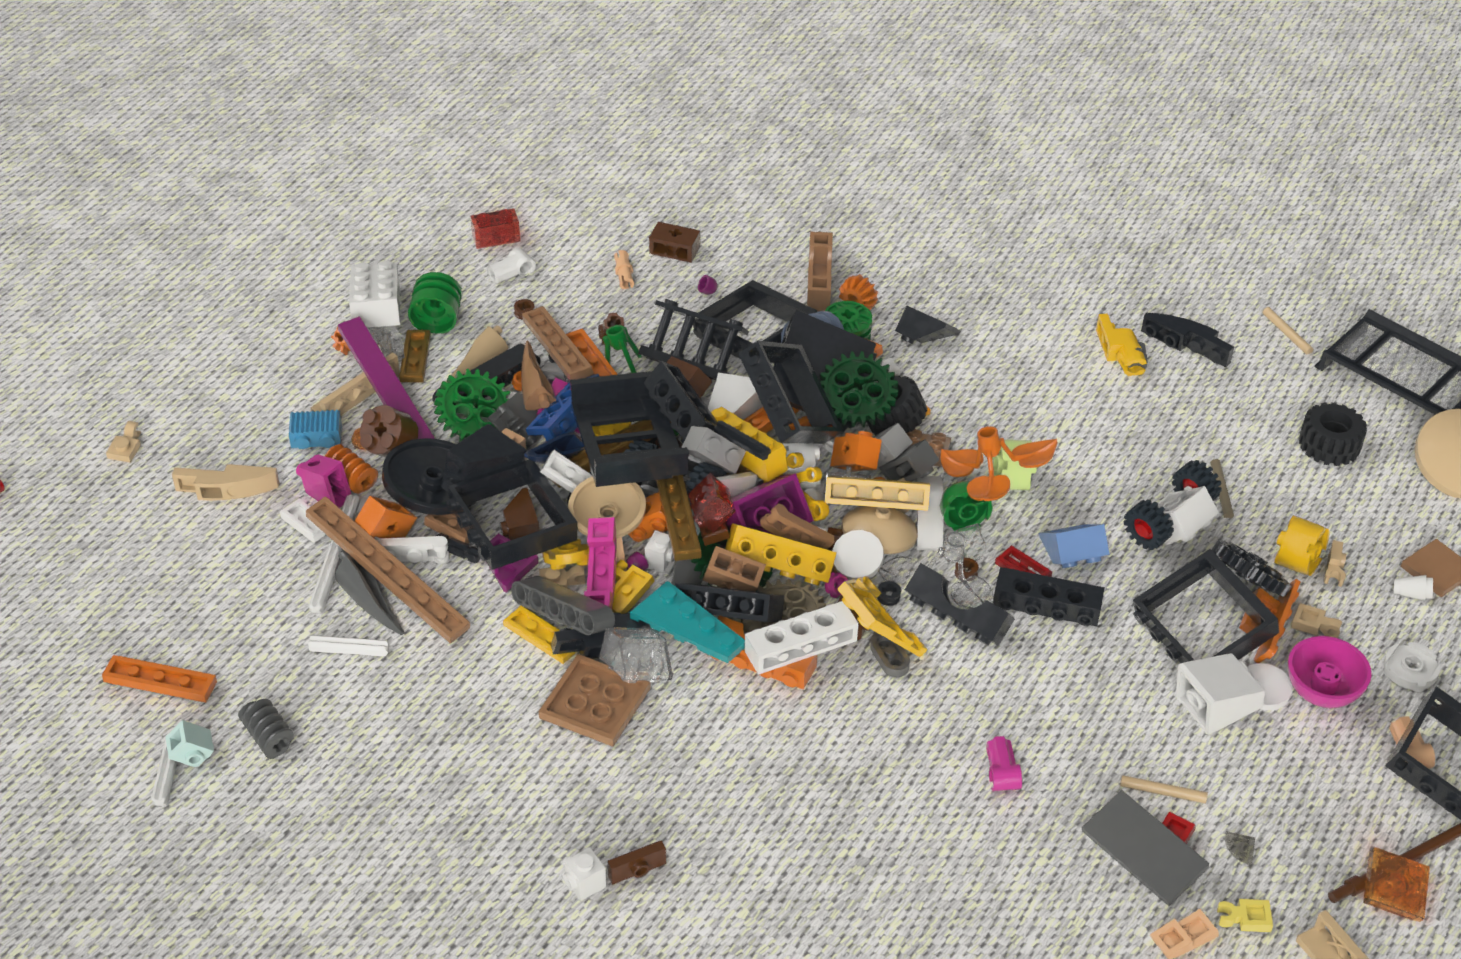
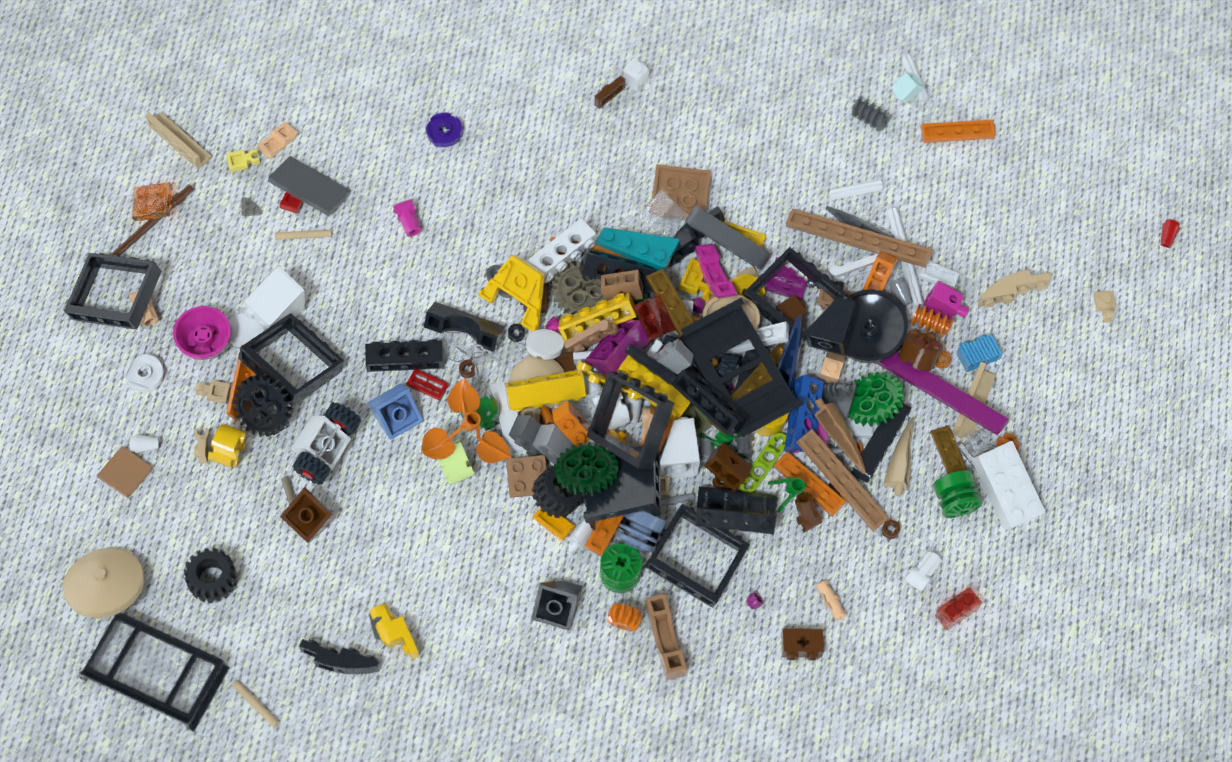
camera: 160 degrees right, 20 degrees up
(909, 892) = (448, 138): none -> dark purple plate
(1206, 452) = (307, 515): none -> reddish brown slope

